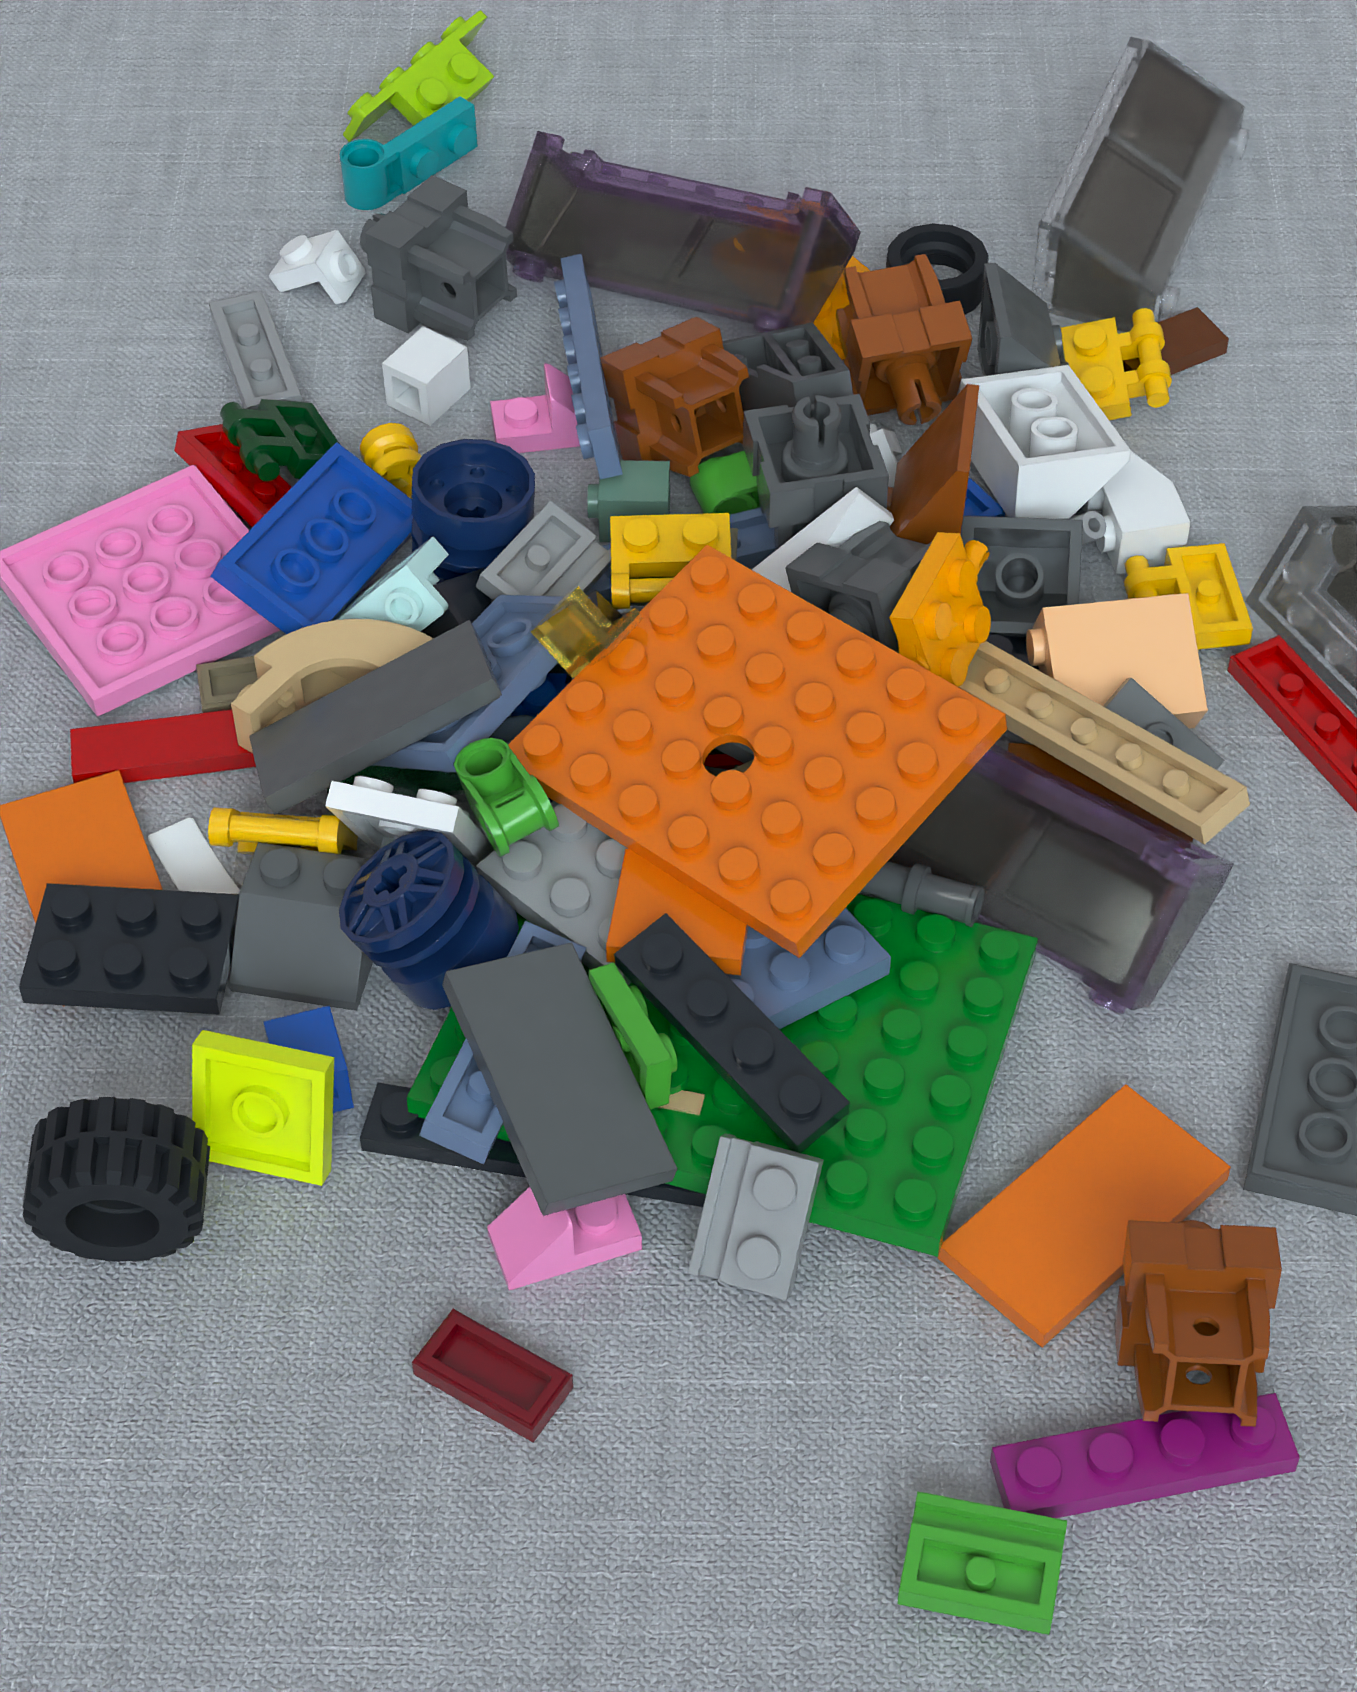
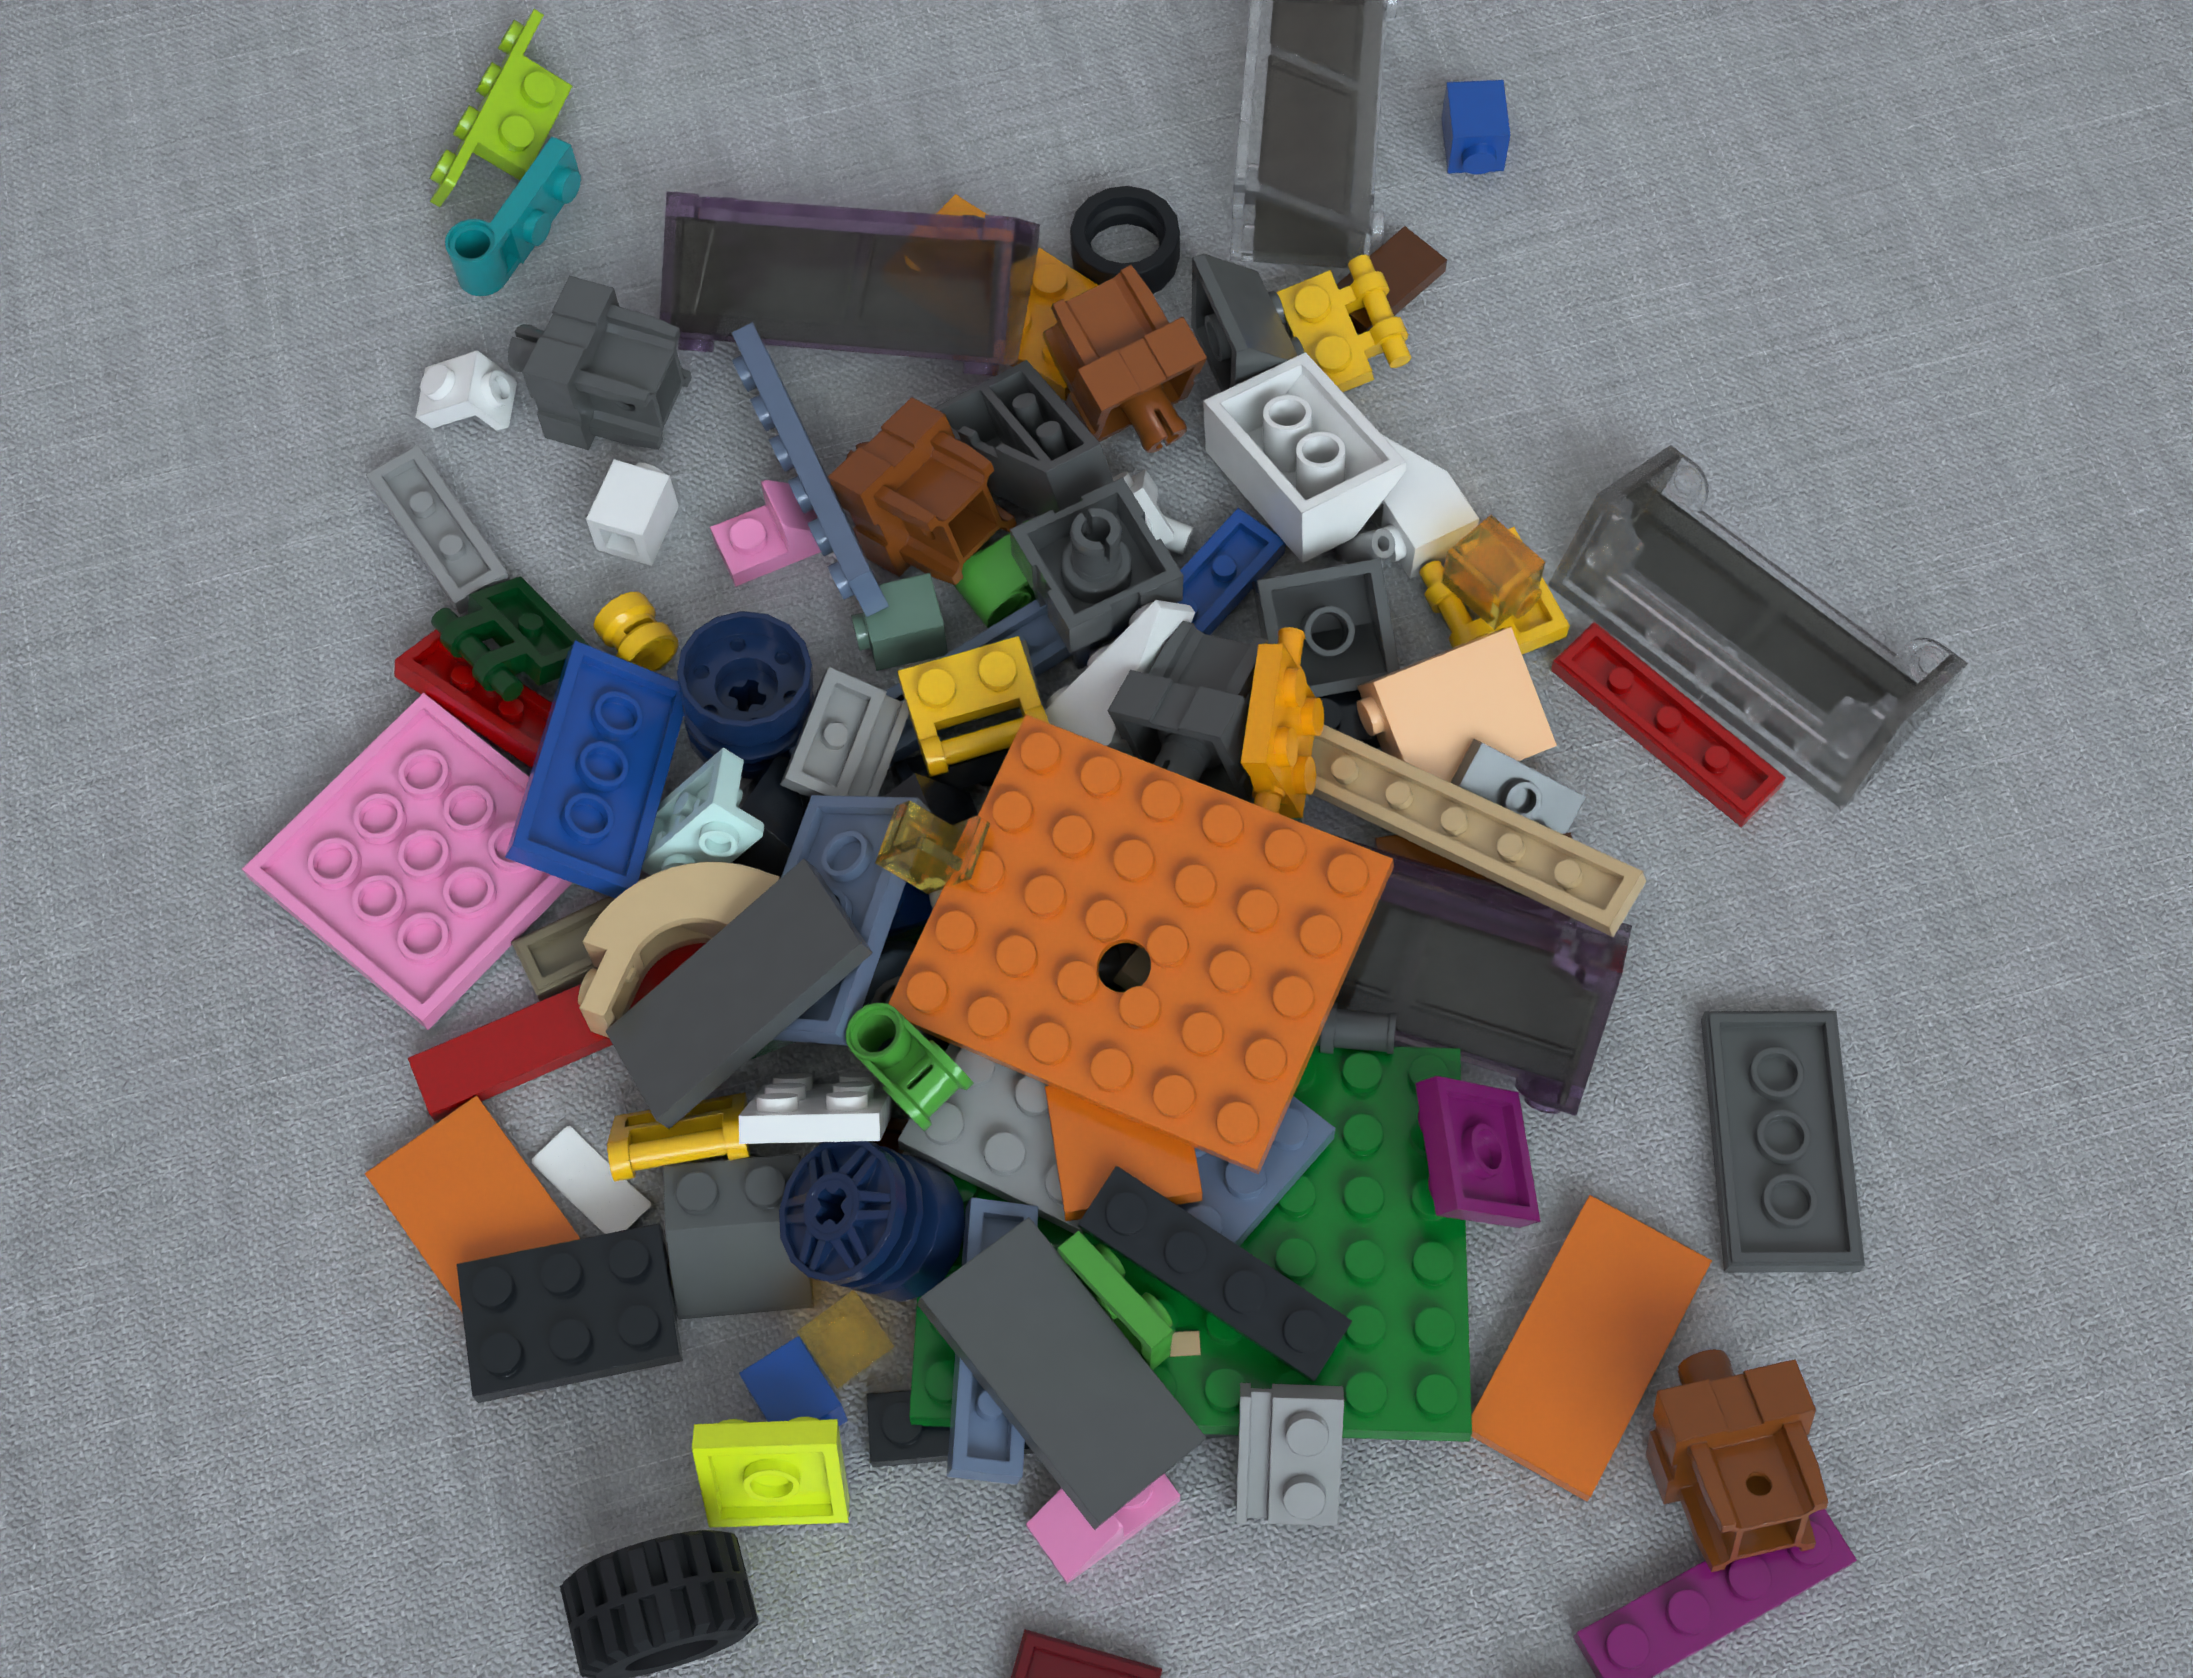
camera: 15 degrees left, 15 degrees up
(373, 1026) = (846, 1340): none -> clear yellow brick
(935, 474) = (1229, 559): dark orange slope -> none
(1023, 1012) = (1476, 1152): none -> magenta plate
(1189, 559) = (1494, 573): none -> clear yellow brick
(1287, 246) = (1475, 126): none -> blue brick

